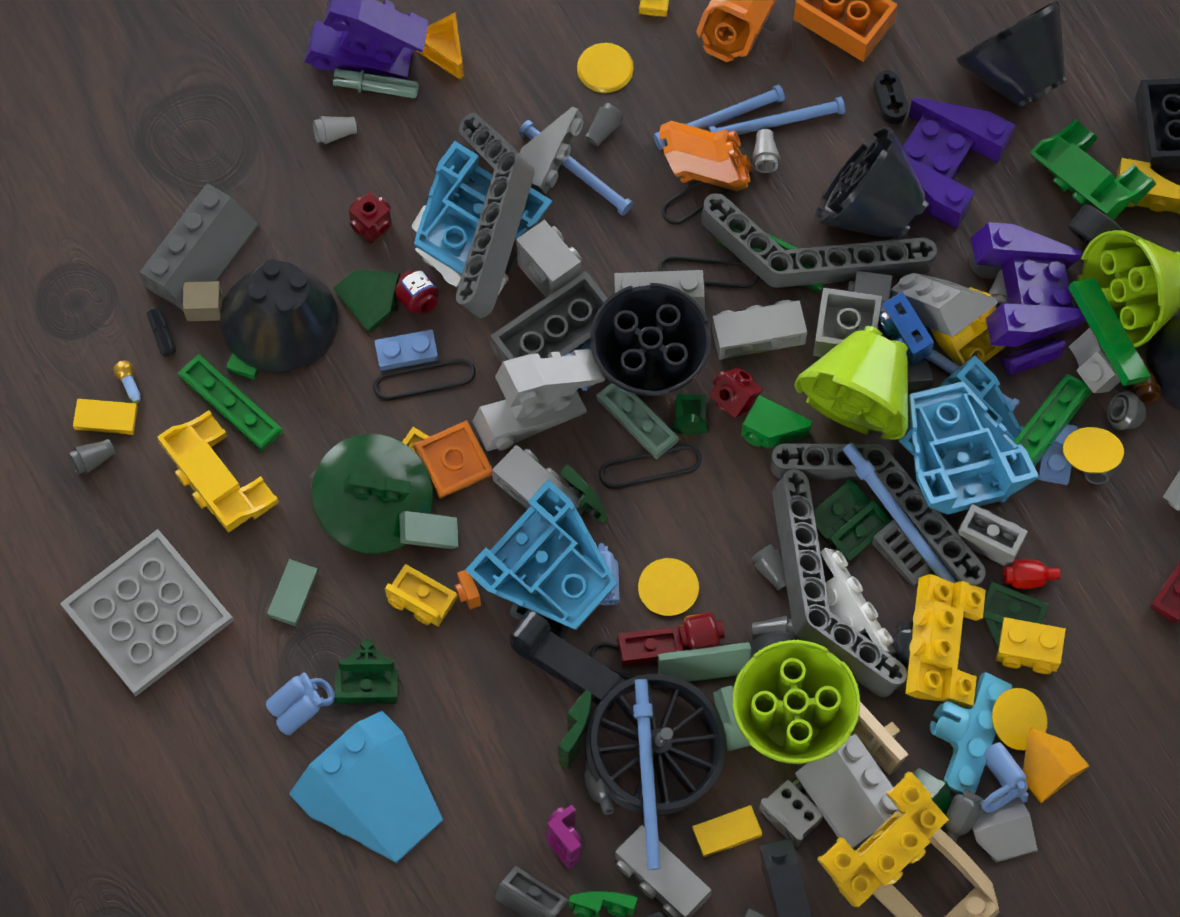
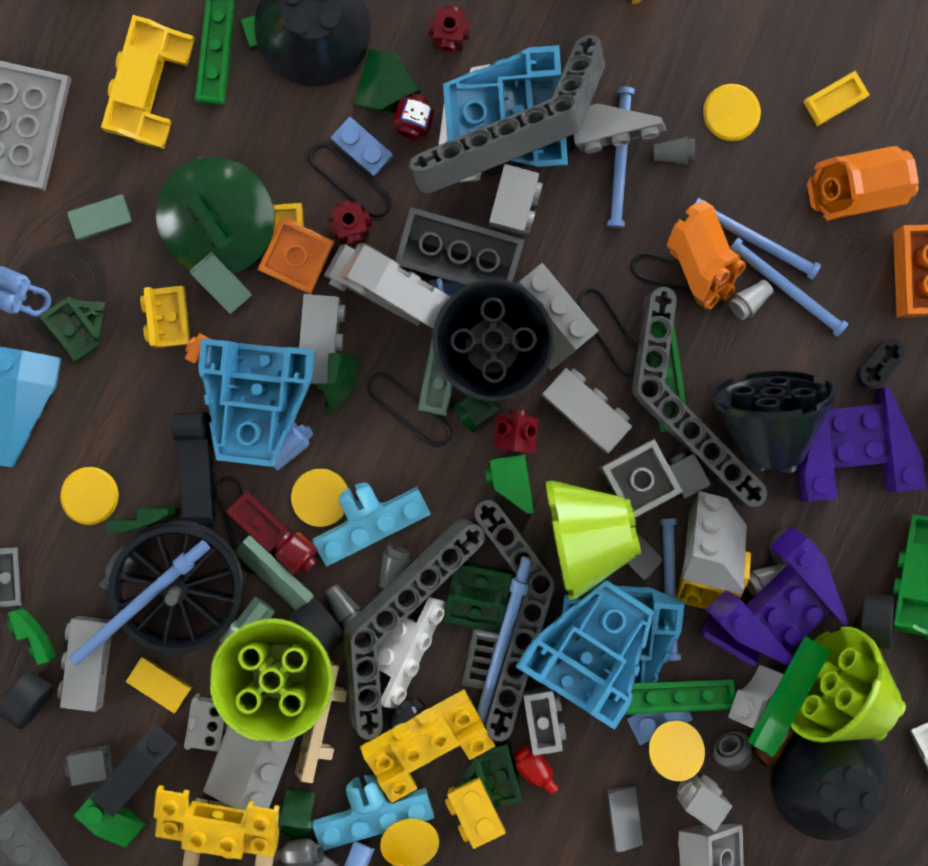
camera: 55 degrees right, 20 degrees up
(461, 397) = (354, 232): none -> dark red brick
(518, 774) = (89, 495): none -> yellow piece
(563, 837) = (52, 572): magenta bracket -> none
(719, 558) = (369, 521): none -> medium azure plate
(902, 324) = (663, 535): blue piece -> none
(1122, 537) = (624, 818): none -> dark grey slope
(1150, 457) = (704, 800): none -> light grey brick

